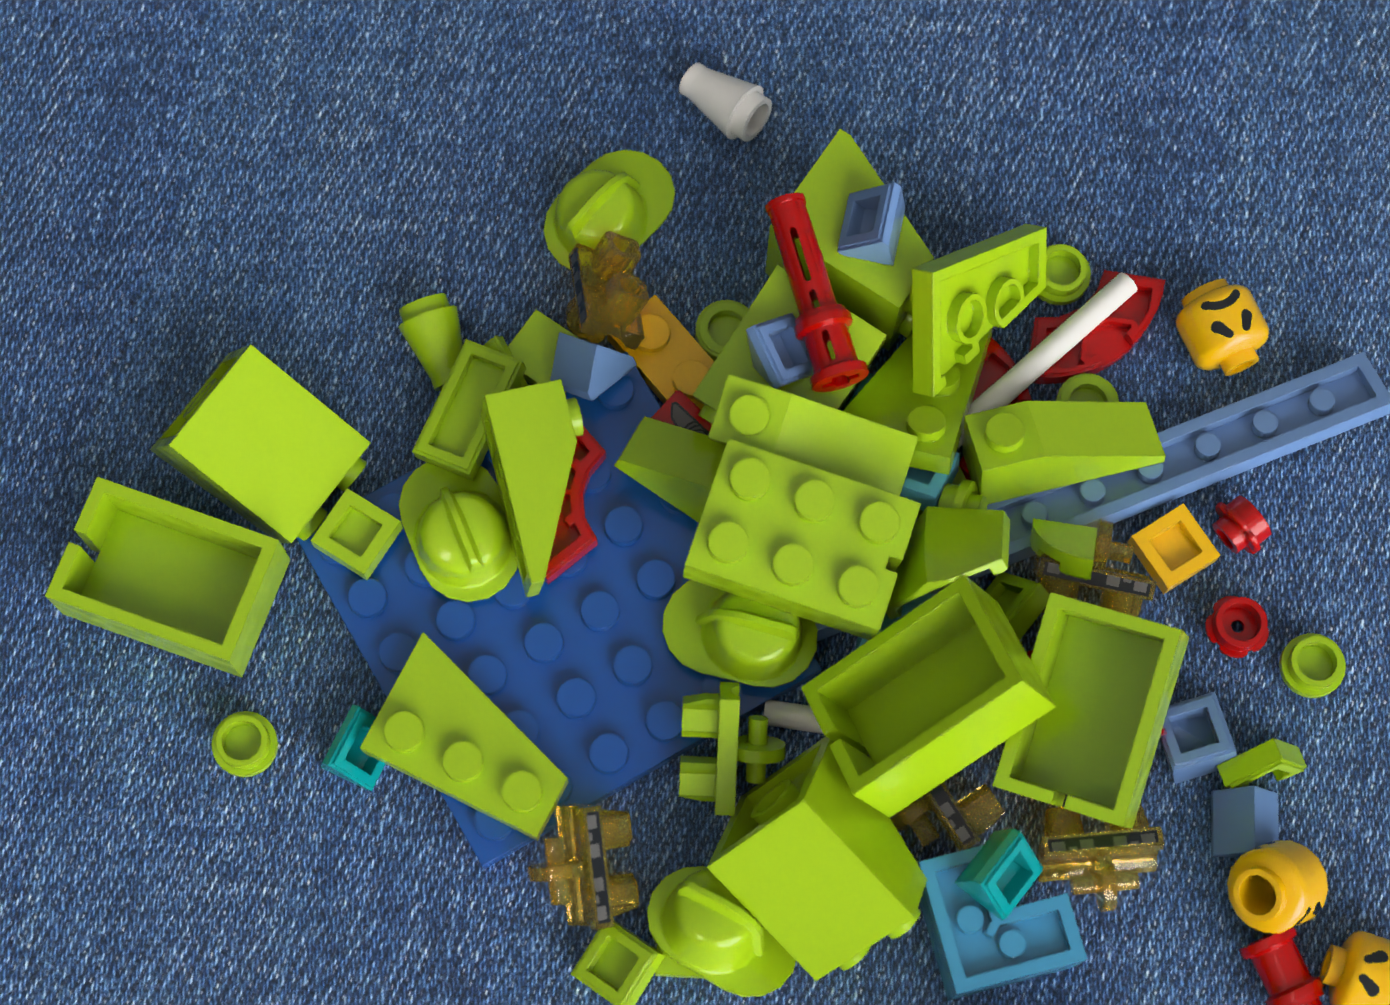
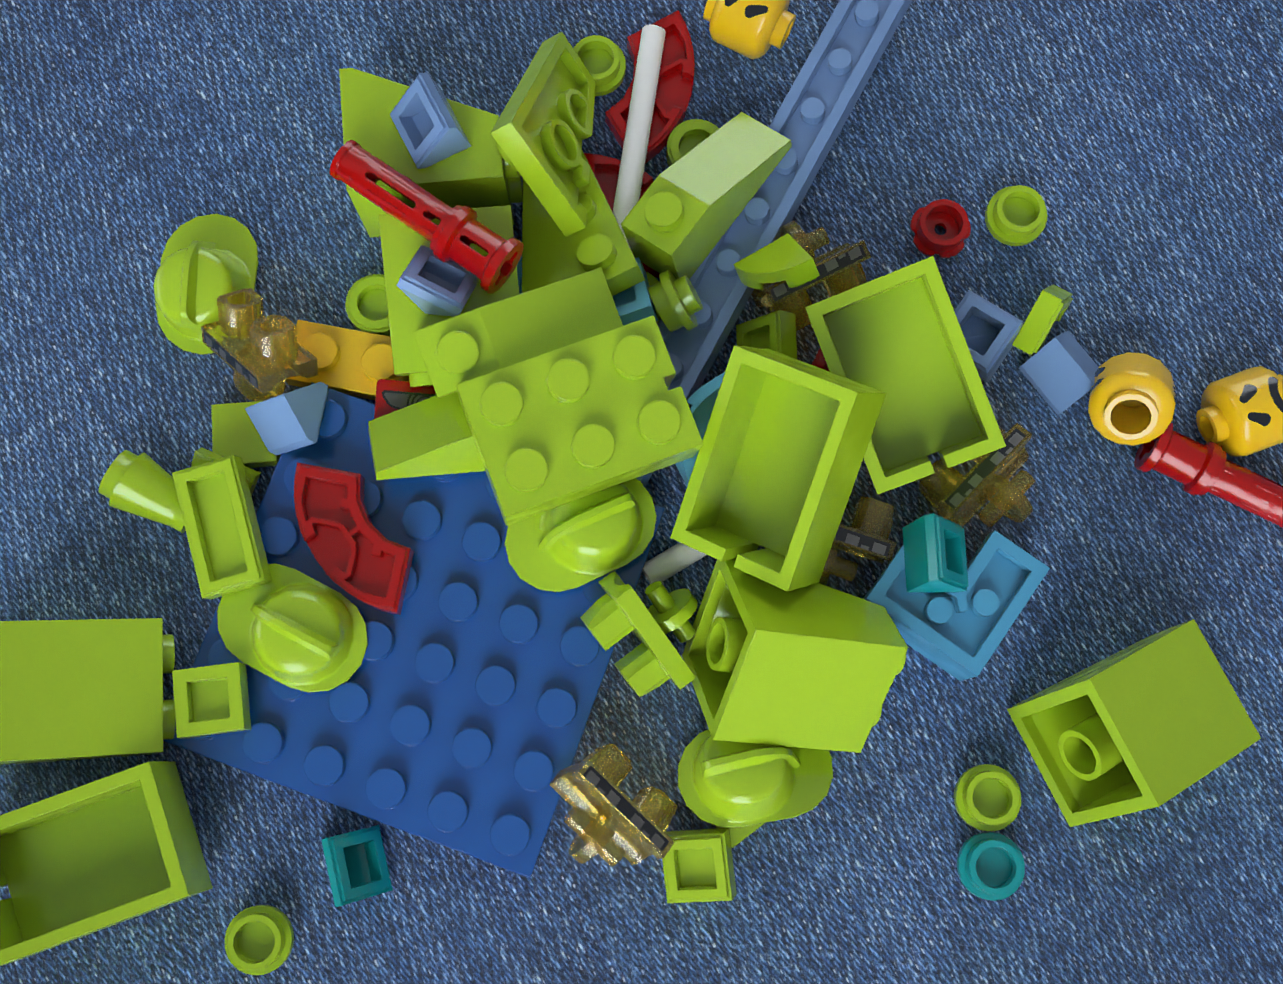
camera: 40 degrees left, 5 degrees up
(462, 744) = (435, 799): lime wing -> none
(532, 452) = (301, 521): lime slope -> none
(729, 102) = (231, 124): white cone -> none
(947, 546) = (701, 335): lime slope -> none
(1173, 548) = (849, 206): yellow plate -> none
(1241, 525) = (883, 151): red plate -> none

